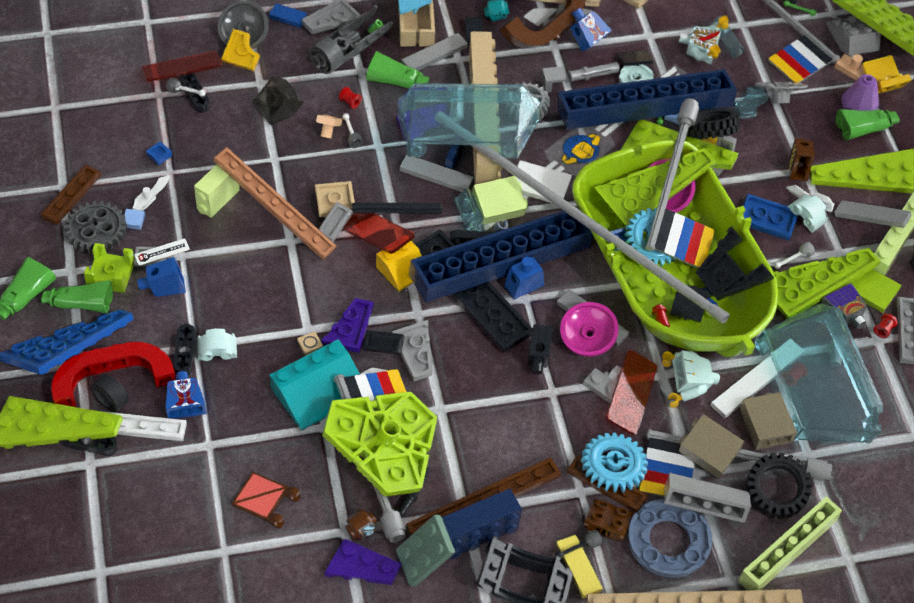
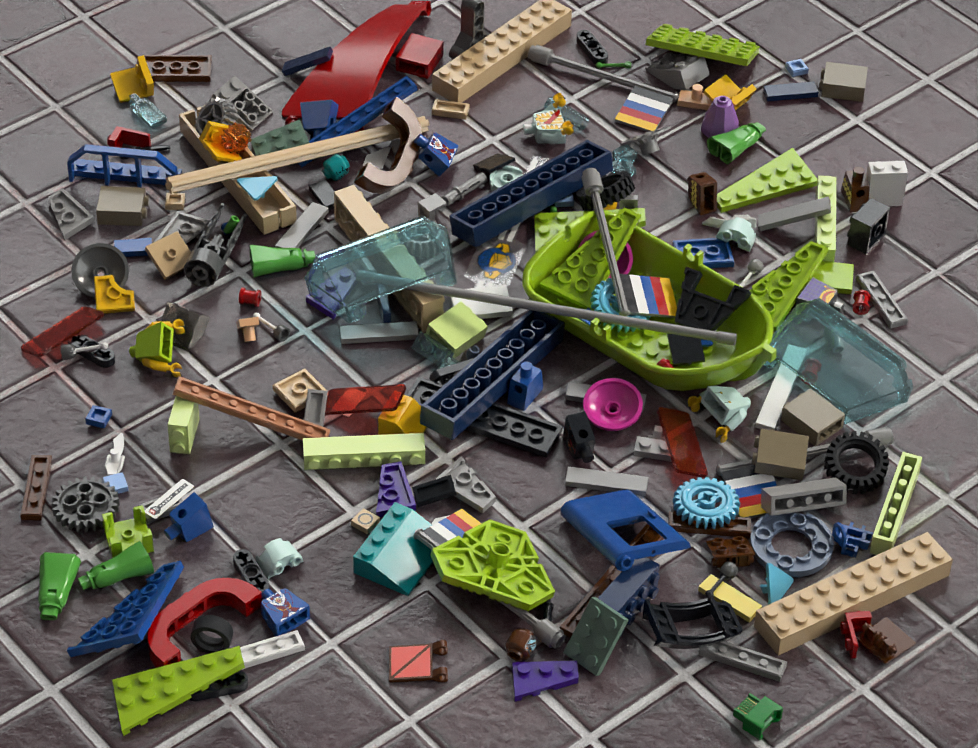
camera: 25 degrees left, 10 degrees down
(241, 109) = (155, 346): none -> lime torso
(308, 32) = (169, 254): none -> tan plate
(349, 278) = (363, 451): none -> yellowish green brick
(397, 208) = (365, 374): black axle -> none
(523, 433) = (599, 513): none -> blue piece
(541, 399) = (605, 481): none -> light grey tile
(627, 574) = (777, 583): none -> medium azure piece
(726, 562) = (842, 535): none -> blue piece

